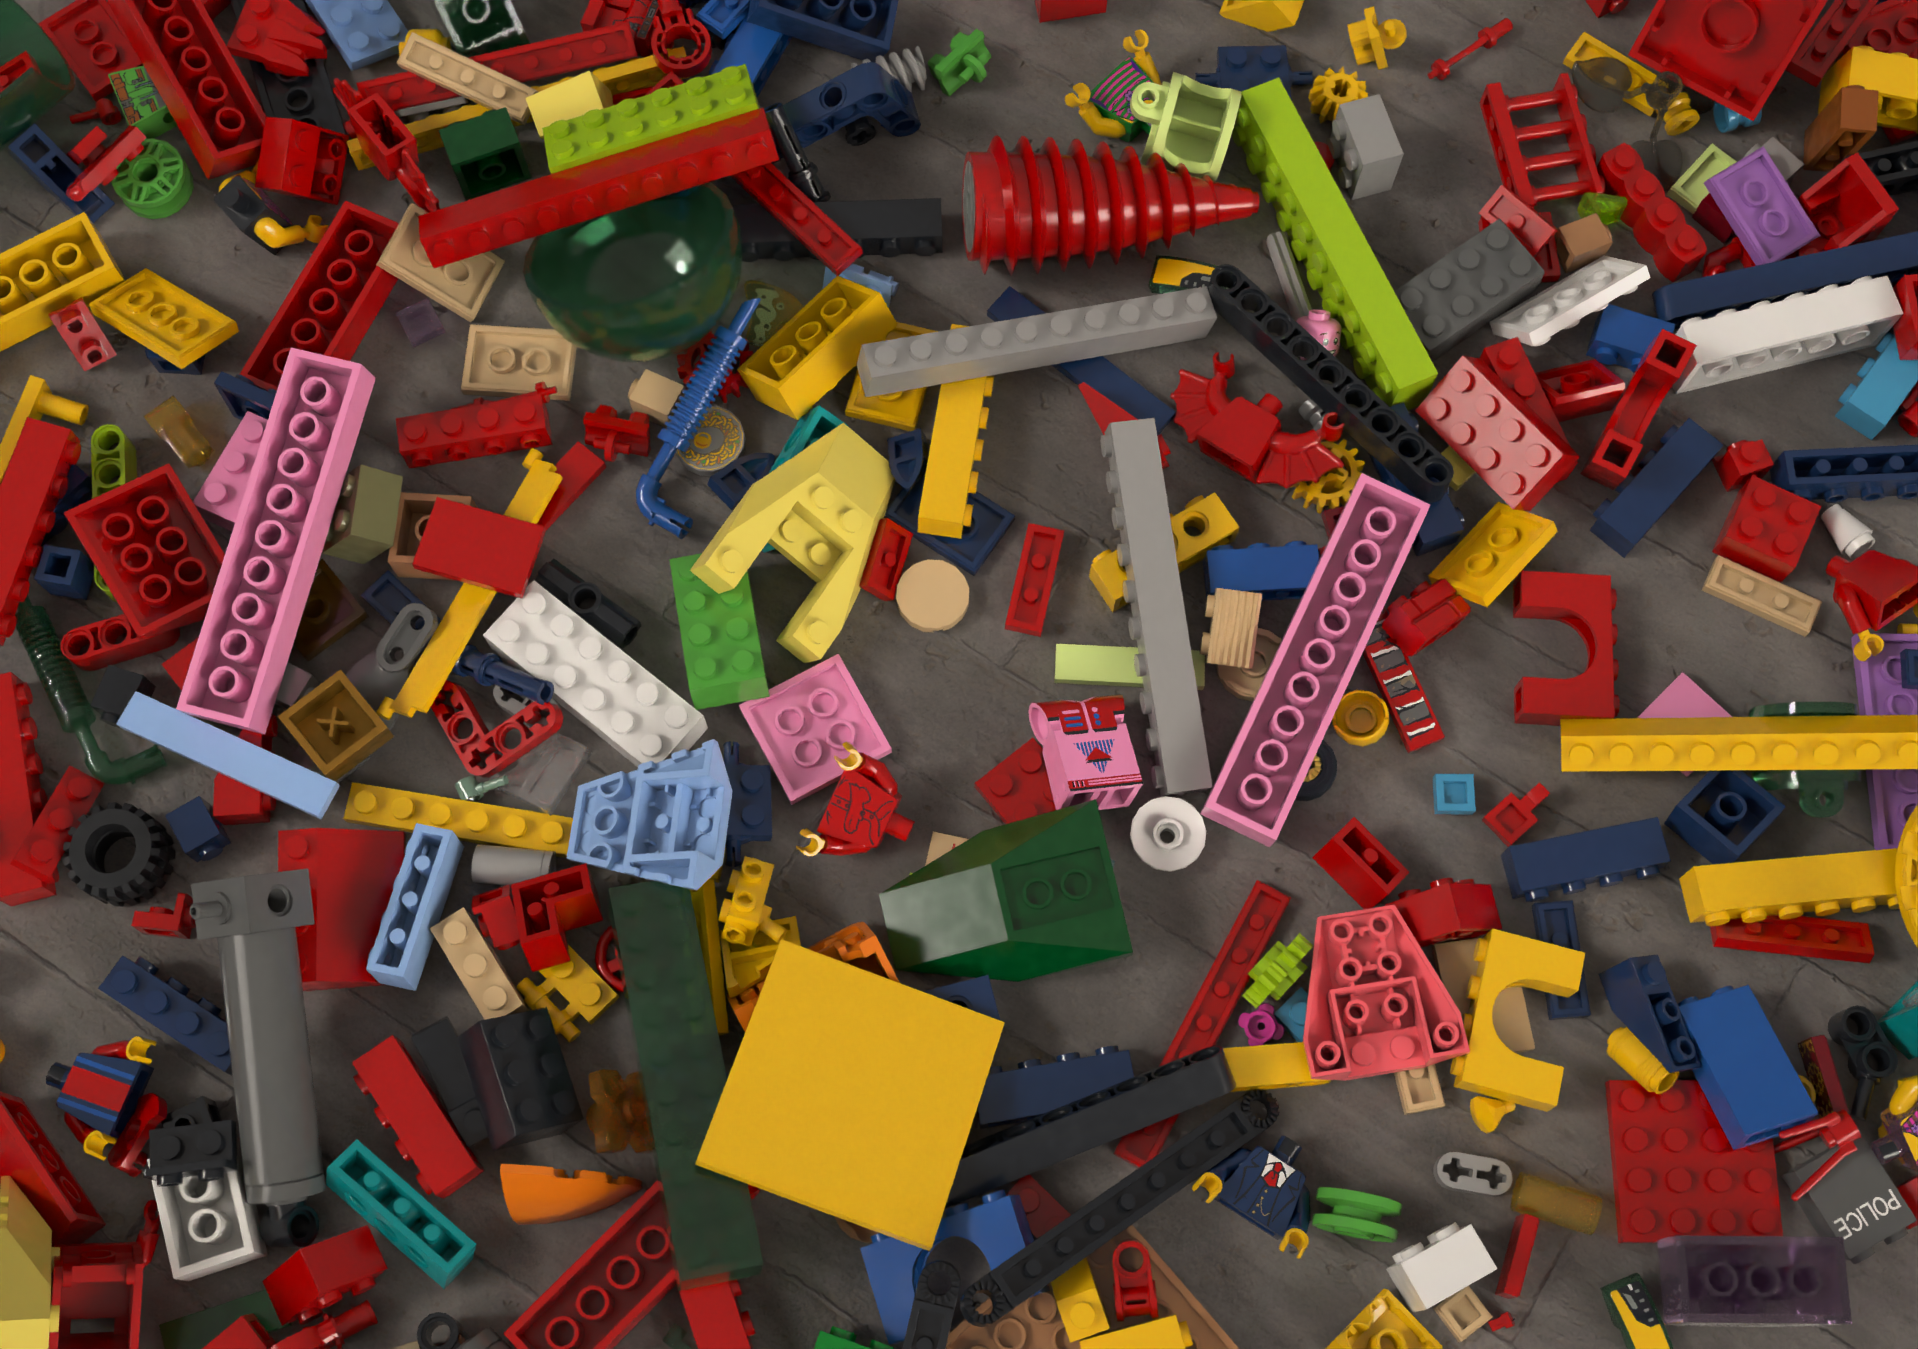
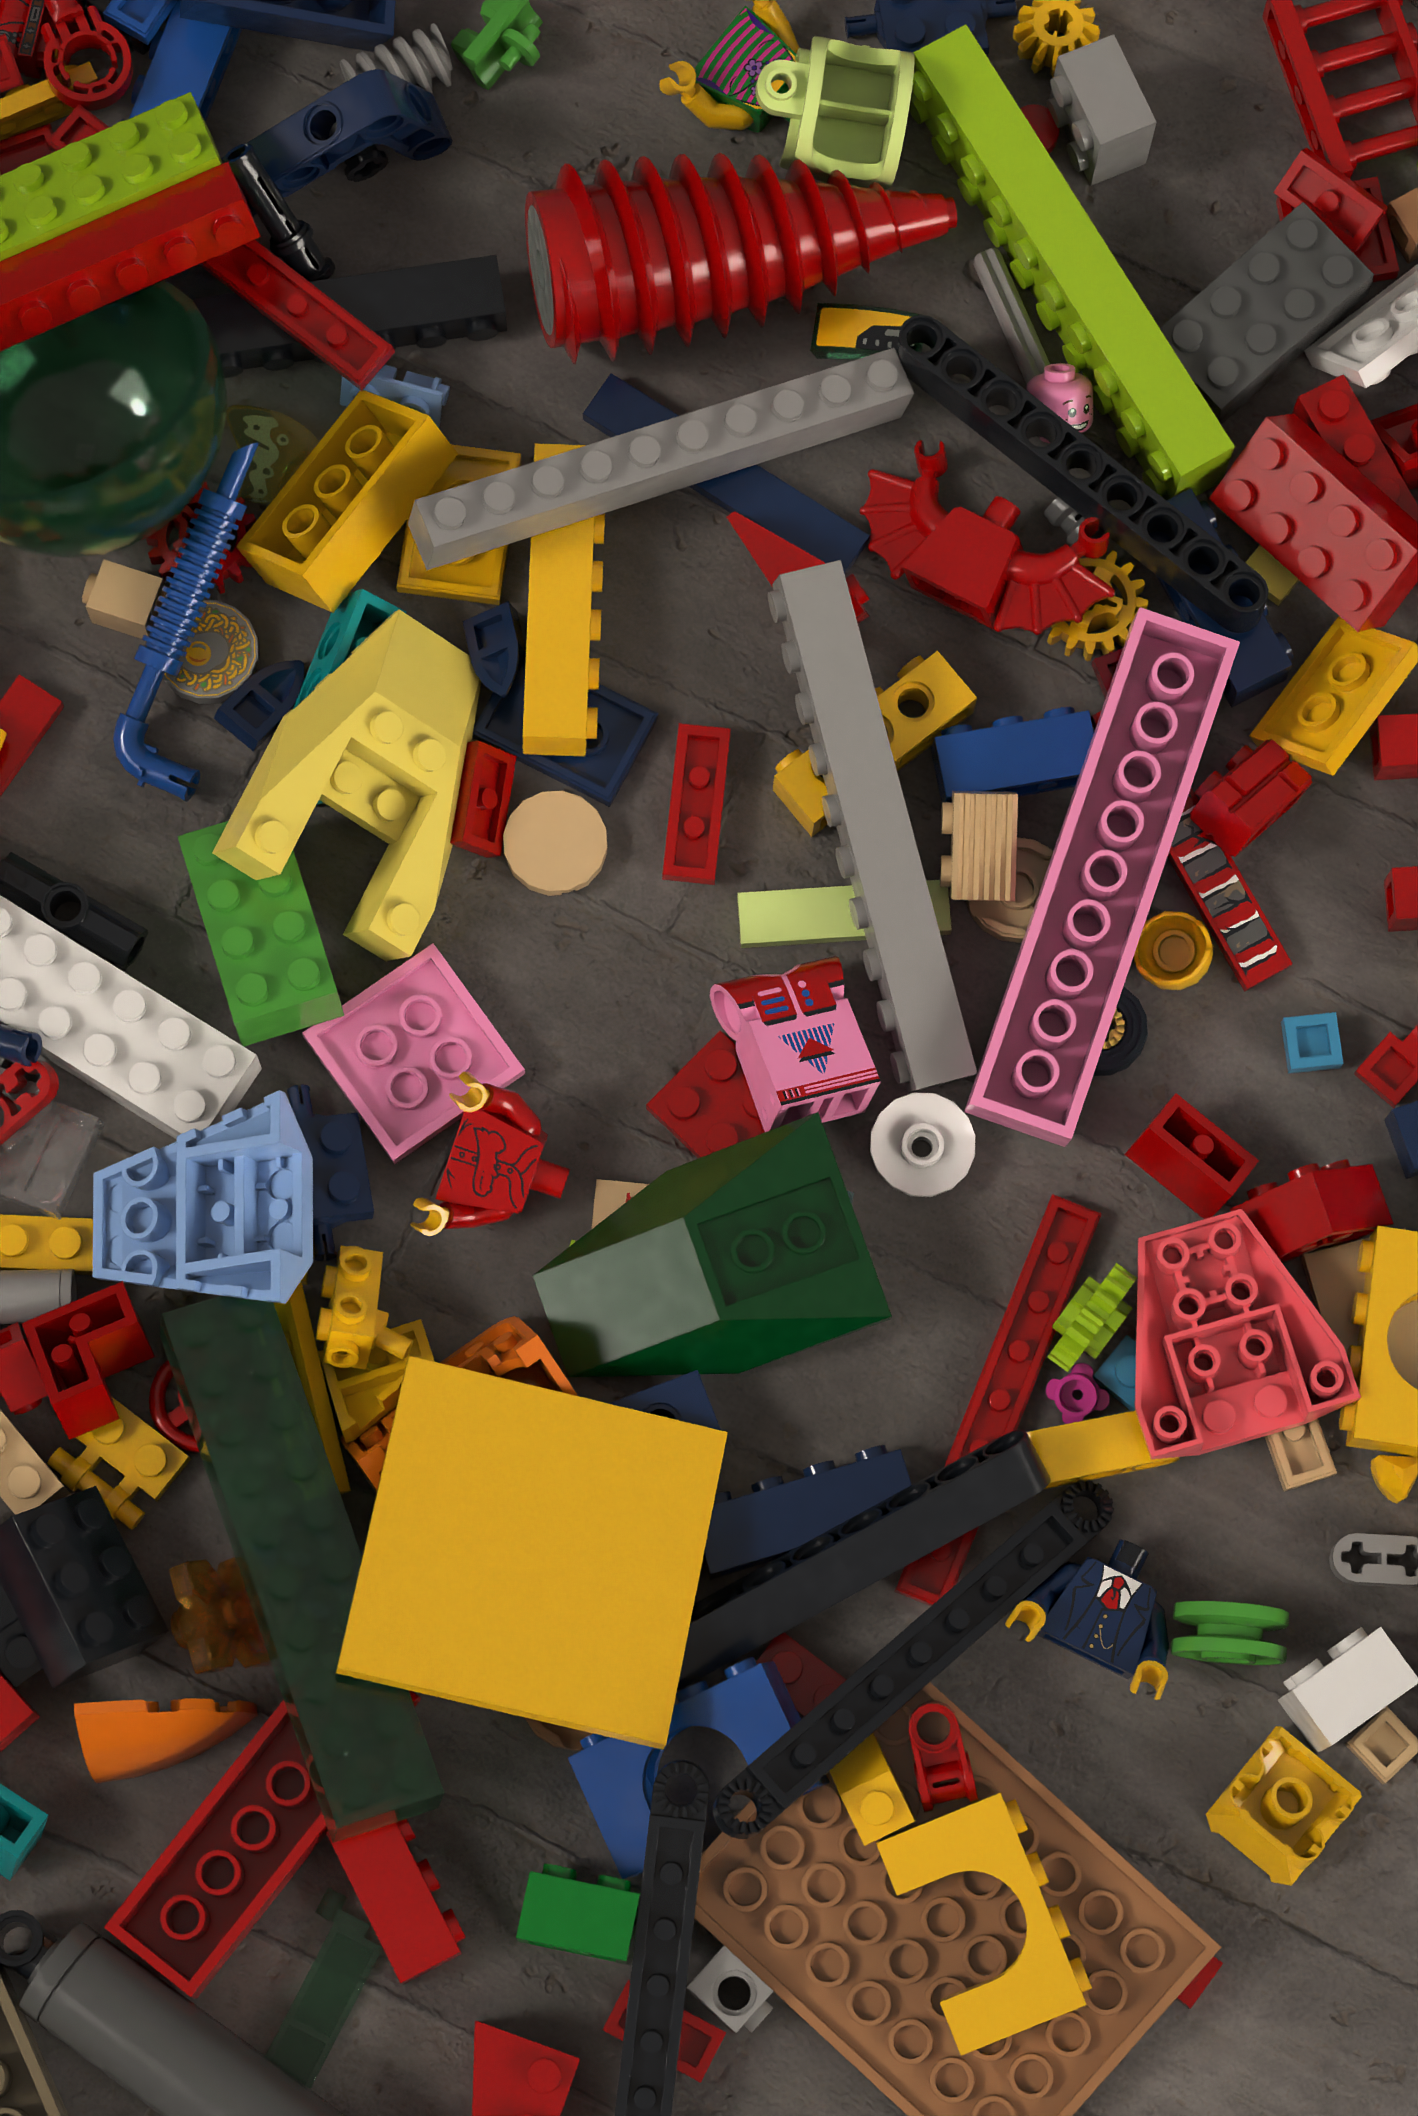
camera: 10 degrees left, 5 degrees up
(617, 435) = (74, 660): red hips -> none

